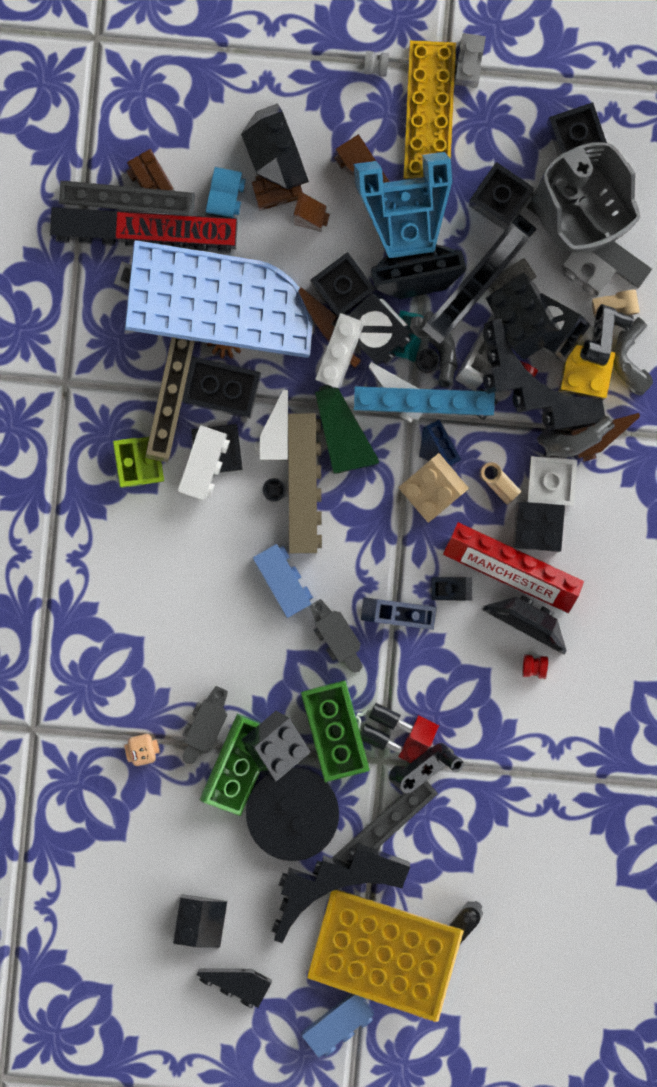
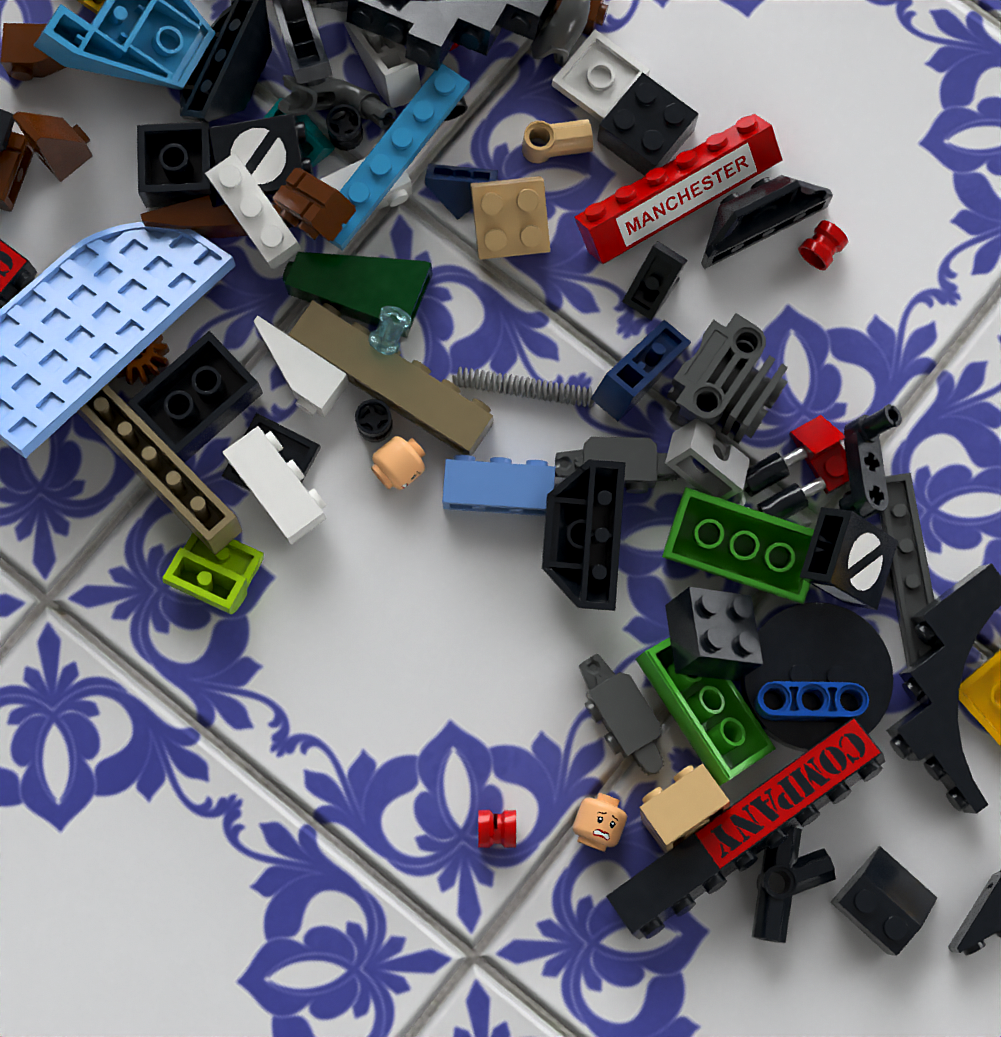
camera: 55 degrees left, 10 degrees down
(103, 699) = (496, 828): none -> red wheel
(174, 788) = (682, 807): none -> tan brick
(184, 869) = (799, 875): none -> black piece
(187, 827) = (747, 829): none -> brick
(260, 518) = (398, 462): none -> light nougat head
(274, 830) = (827, 692): none -> blue beam
(284, 644) = (585, 534): none -> black wedge
(325, 467) = (389, 330): none -> clear light blue bush
(349, 560) = (522, 389): none -> light grey piece
(363, 381) = (313, 205): none -> reddish brown brick
(363, 791) = (849, 558): none -> black brick
(367, 683) = (724, 464): none -> light grey brick
(419, 665) = (726, 379): none -> dark grey piece

